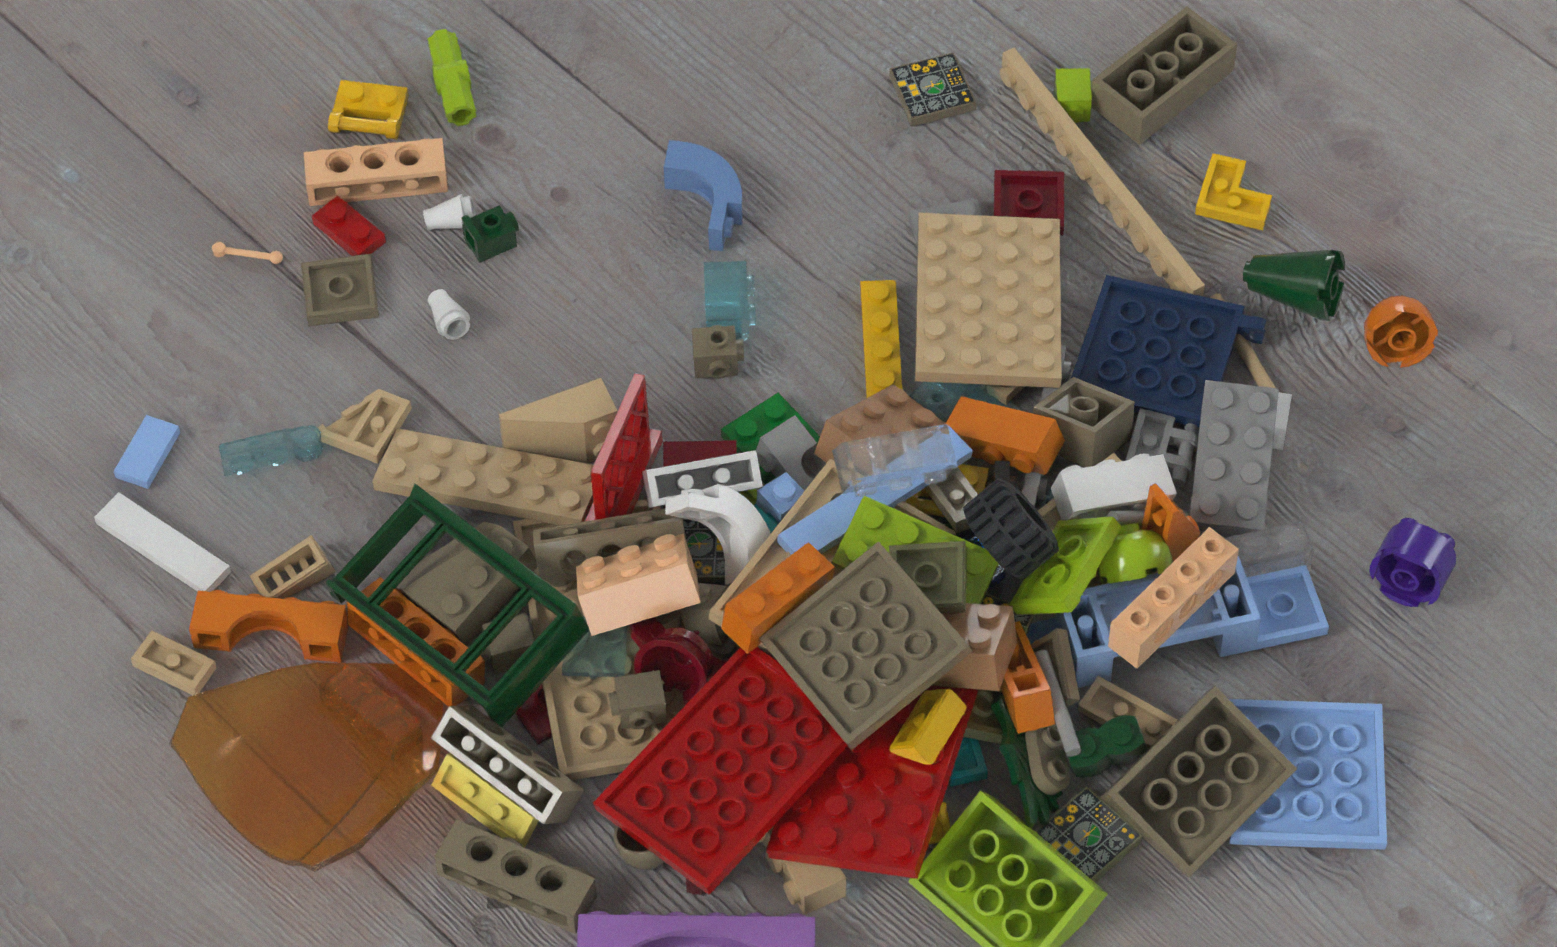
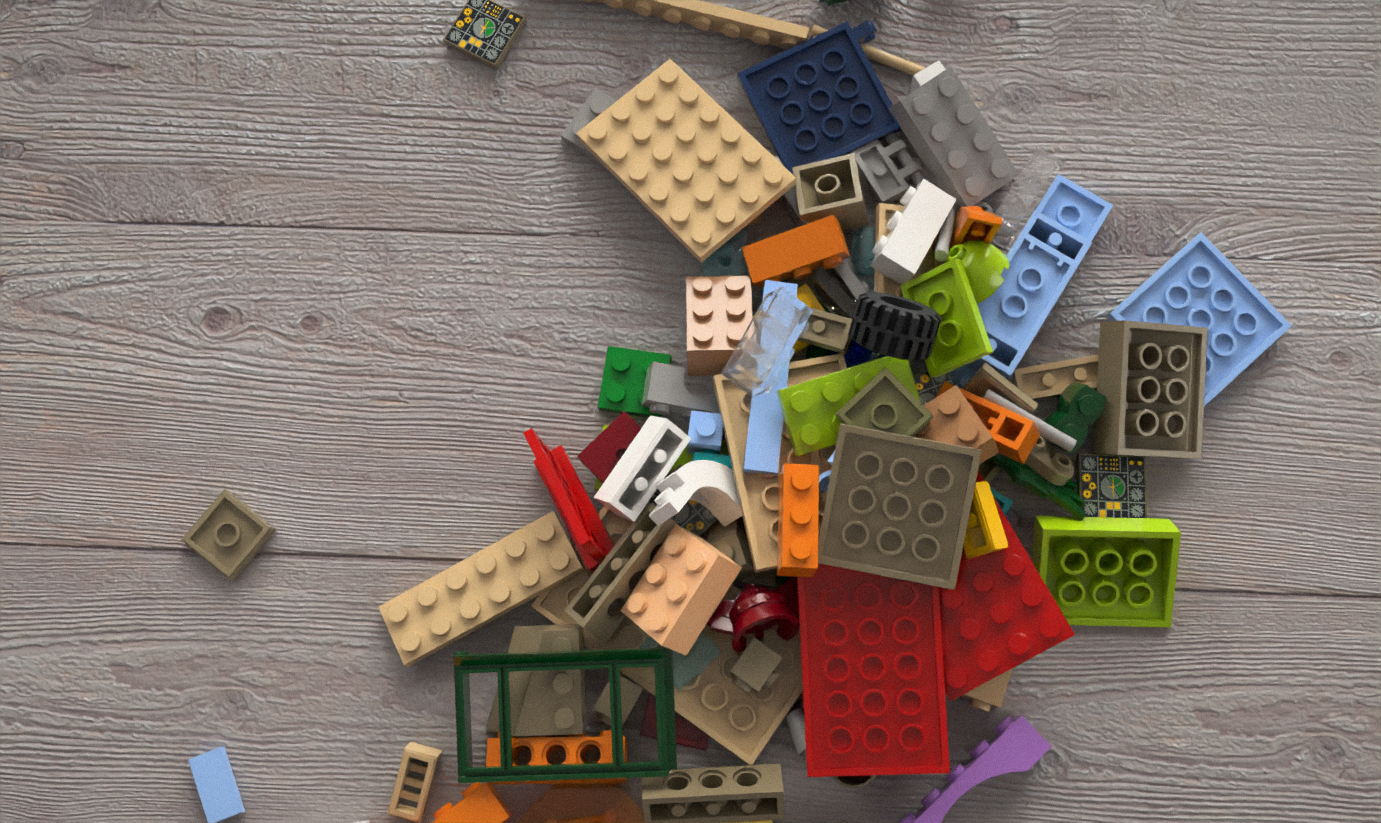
camera: 40 degrees left, 20 degrees up
(219, 250) = (110, 579): light nougat hinge -> none
(270, 449) = (307, 704): clear light blue hinge -> none
(348, 228) = (187, 481): red plate -> none
(368, 102) = (103, 371): yellow plate -> none
(368, 426) = (355, 624): tan wing -> none
(376, 171) = (162, 441): light nougat brick -> none
(448, 315) = (328, 488): white cone -> none
(449, 213) = (252, 407): white cone -> none
(451, 77) = (145, 302): lime piece -> none
(490, 233) = (300, 406): dark green brick -> none
(562, 425) = (501, 504): tan slope -> none
(711, 176) = (407, 223): medium blue arch -> none
(716, 351) = (541, 354): dark tan brick -> none
(727, 296) = (508, 308): clear light blue brick -> none
(880, 335) = (635, 247): yellow plate -> none
(1029, 194) = (628, 58): dark red plate -> none
(1173, 597) = (1038, 280): light nougat brick -> none
(1413, 563) = (1125, 114): dark purple brick -> none

